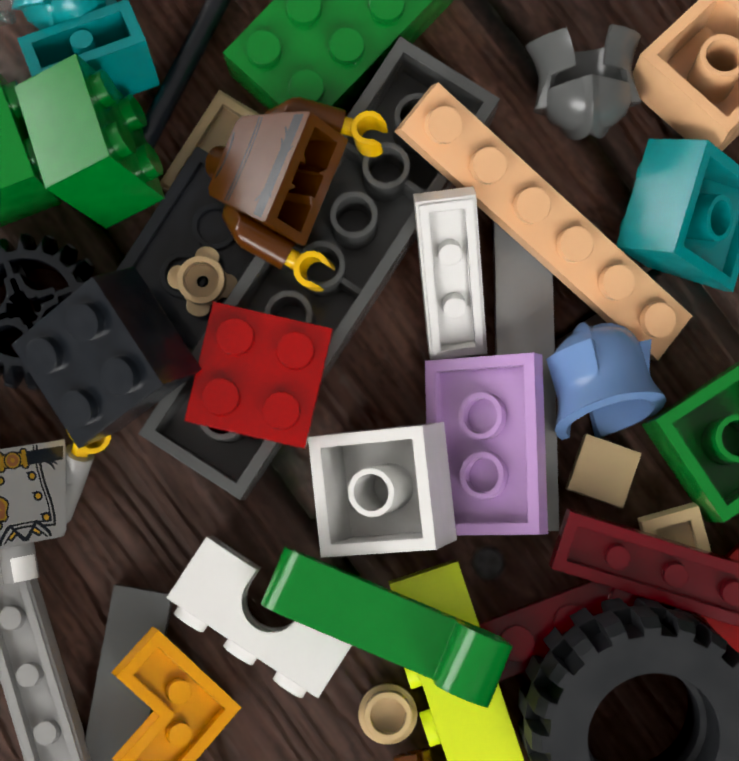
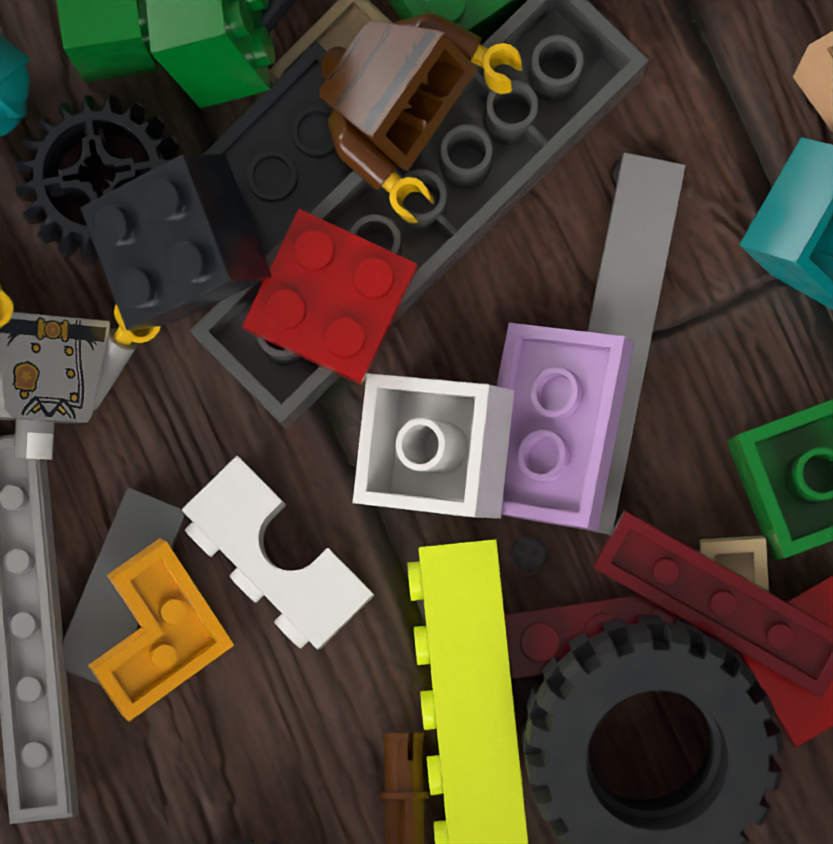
camera: 15 degrees right, 0 degrees up
(185, 280) = (275, 177): tan plate -> none
(387, 713) = (387, 687): tan plate -> none
(388, 625) = (406, 583): green beam -> none
(451, 272) = (556, 234): white tile -> none
(541, 219) = (667, 202): light nougat plate -> none
(585, 88) = (745, 68): dark grey helmet -> none
(603, 471) = (674, 482): tan tile -> none
(605, 375) = (699, 378): medium blue helmet -> none

